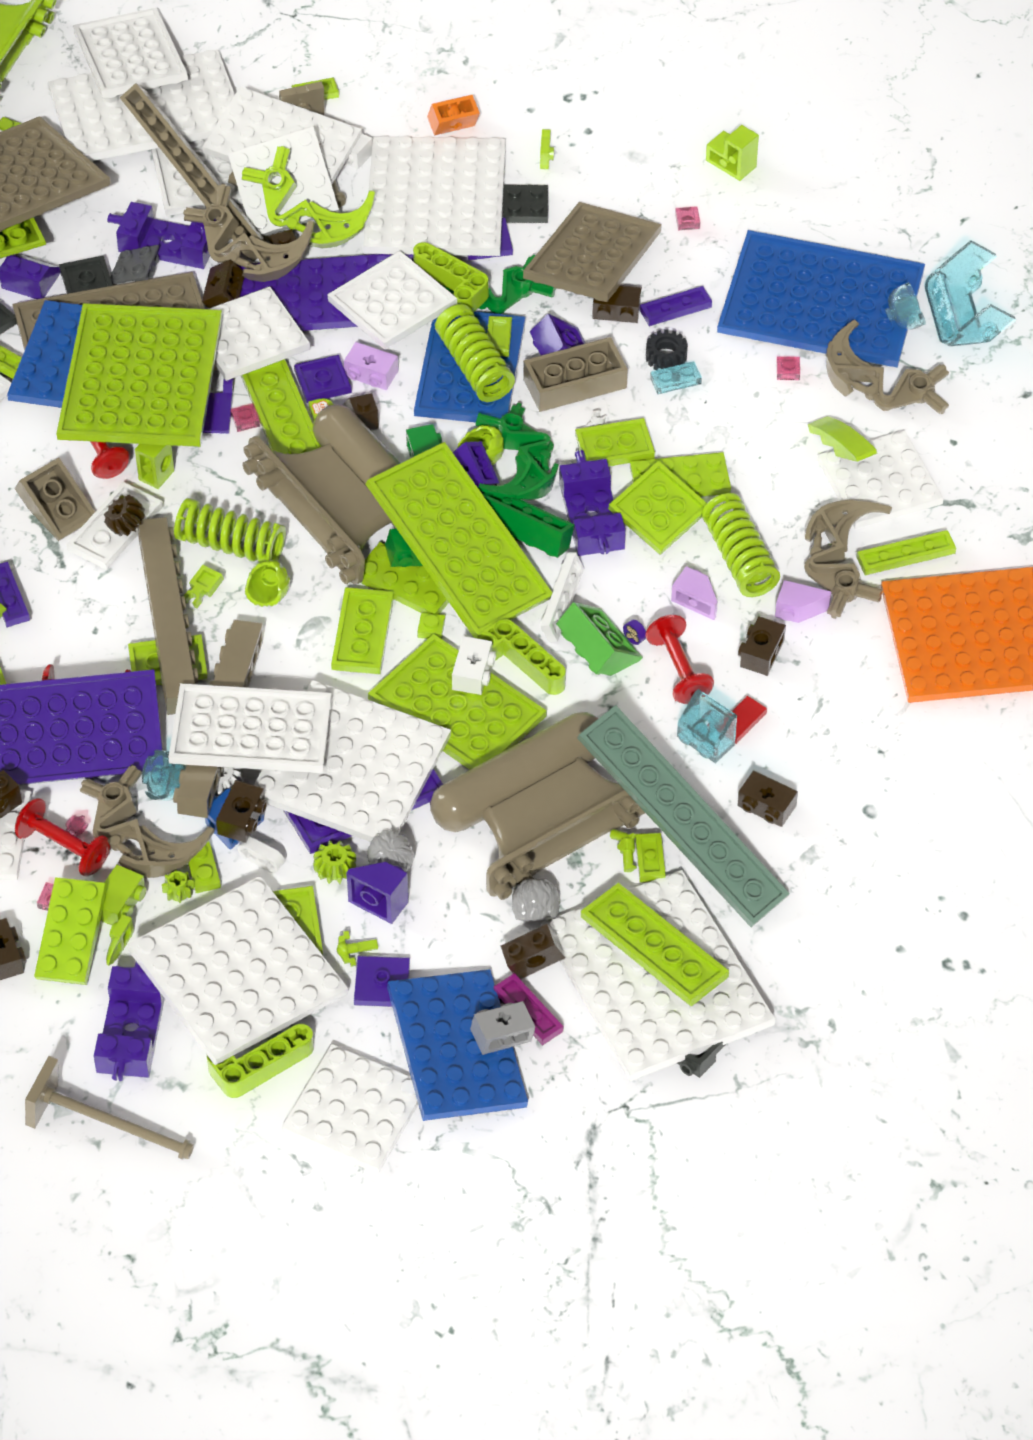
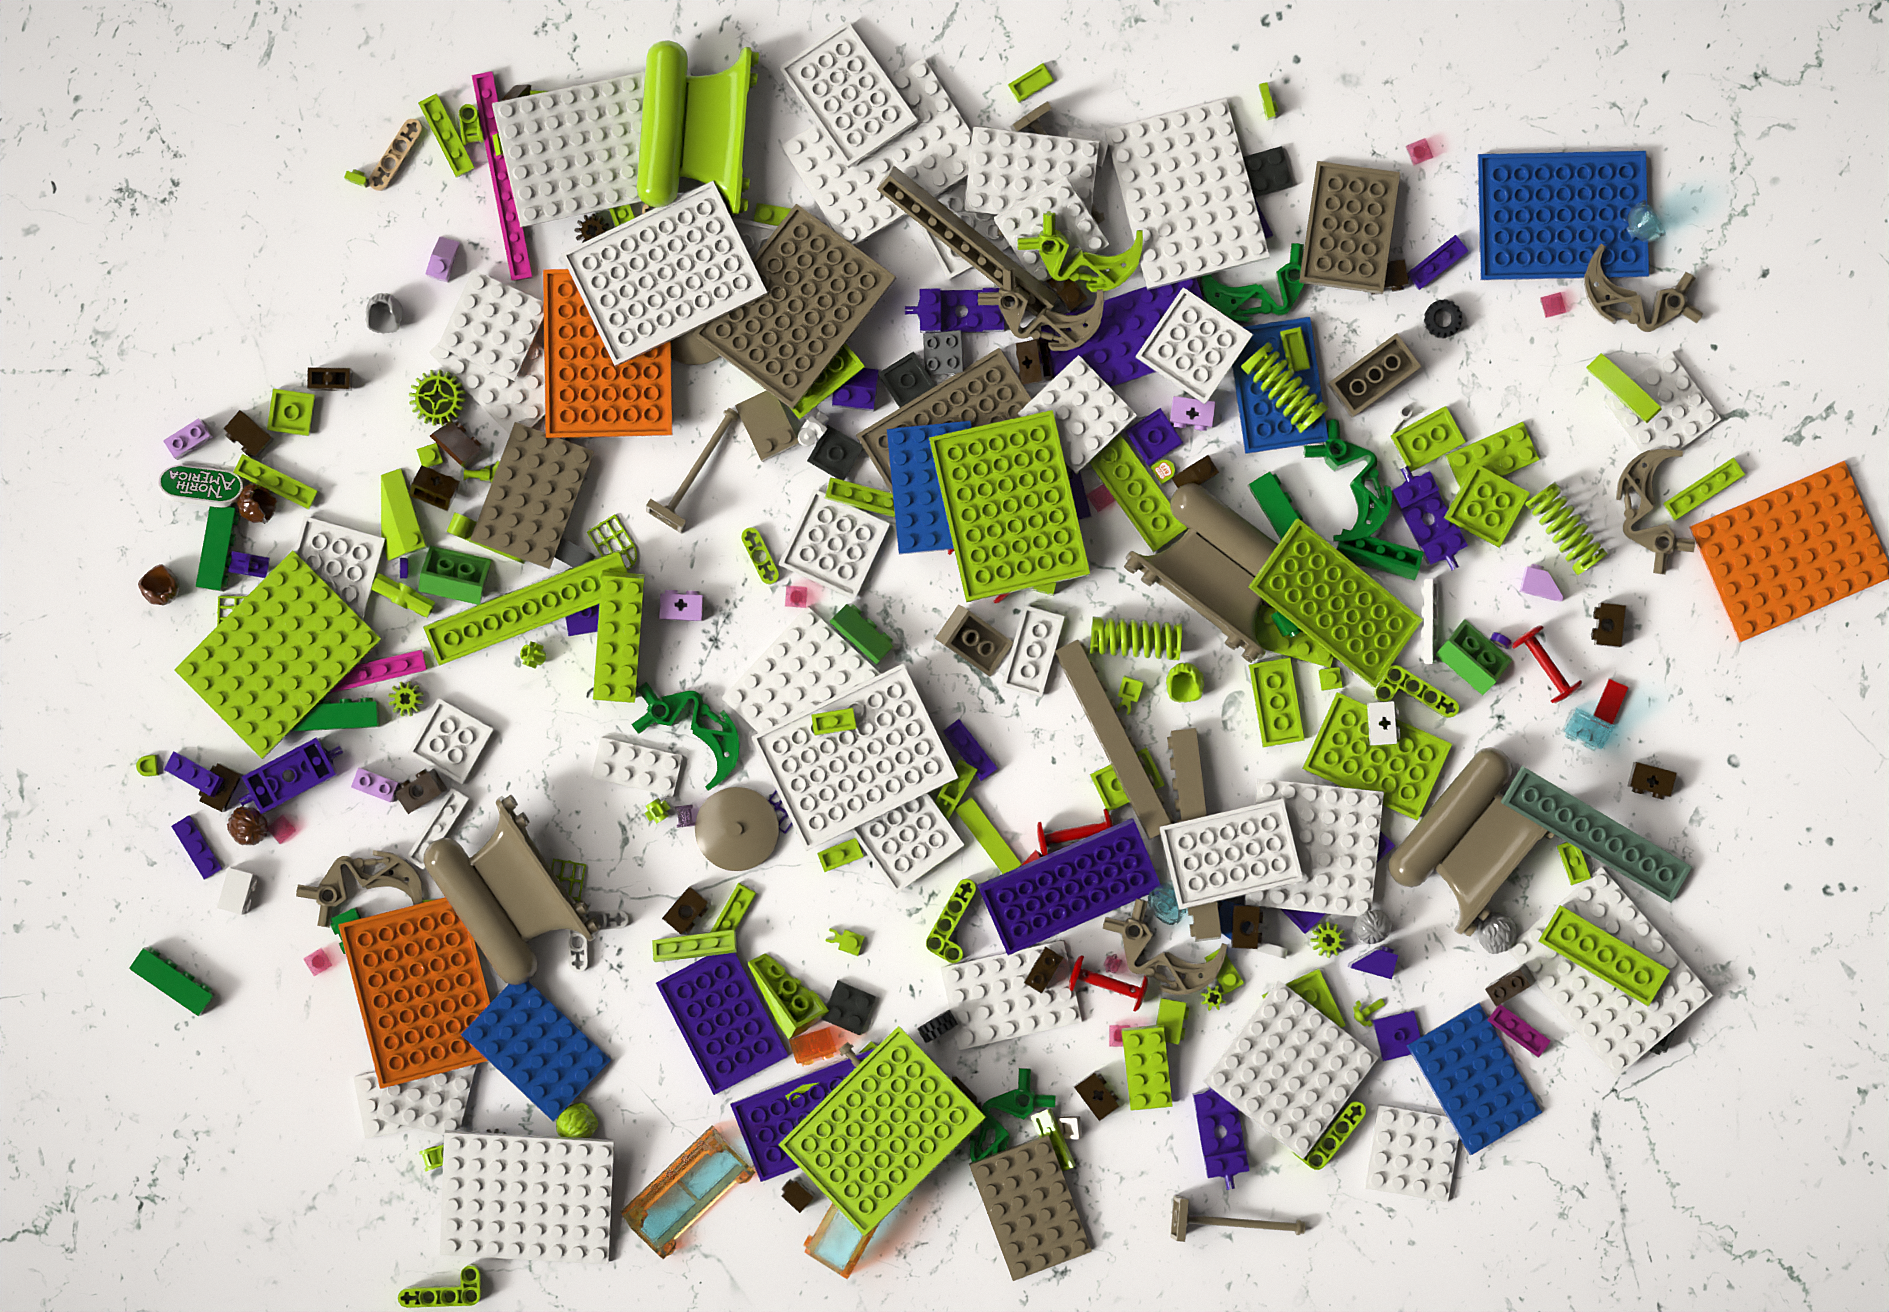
camera: 20 degrees left, 35 degrees up
(120, 936) = (1183, 1054): lime plate -> none
(124, 515) = (1044, 653): dark brown gear -> none
(453, 115) = (1172, 88): orange brick -> none
(467, 282) = (1232, 300): lime beam -> none
(476, 463) = (1320, 513): dark purple brick -> none
(490, 438) = (1317, 482): lime hair -> none
(502, 1027) = (1519, 1061): light grey brick -> none
(555, 335) = (1350, 339): dark purple slope -> none
(626, 846) = (1552, 857): lime piece -> none
(675, 378) = (1458, 344): clear light blue plate -> none
(734, 152) = (1439, 61): lime brick -> none
(801, 602) = (1627, 570): lavender slope -> none
(951, 299) = (1683, 194): clear light blue windscreen -> none

